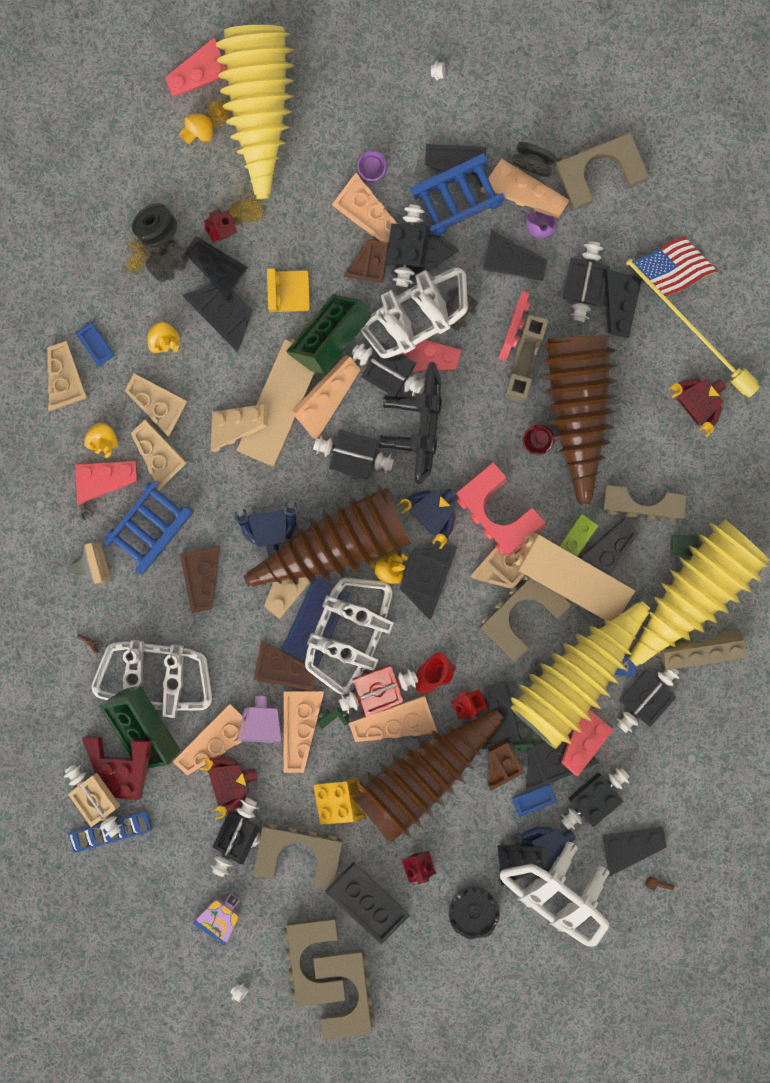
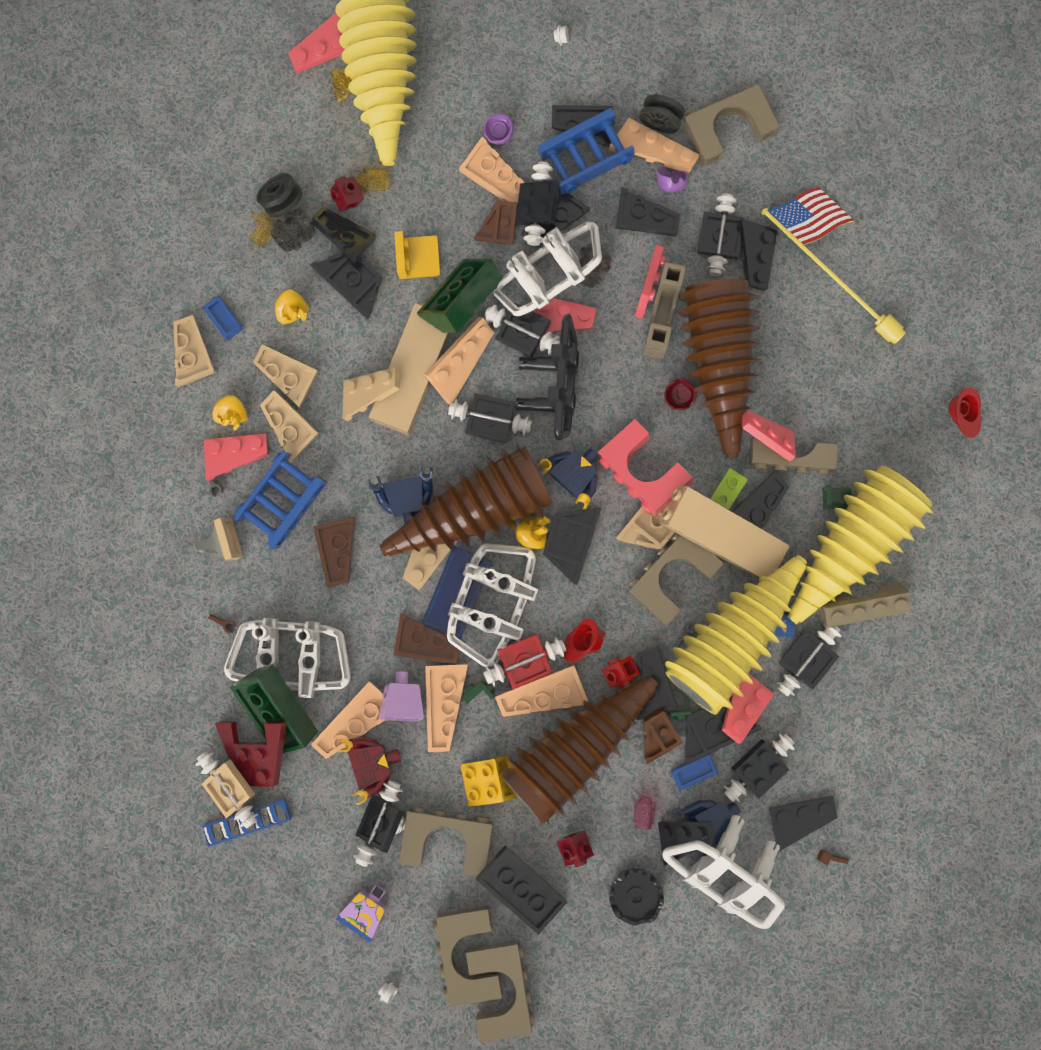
camera: 10 degrees right, 5 degrees down
(197, 125) = (321, 97): yellow piece -> none
(485, 836) = (644, 812): none -> clear pink brick
(622, 483) = (771, 434): none -> coral wing
(700, 401) = (845, 349): dark red torso -> none

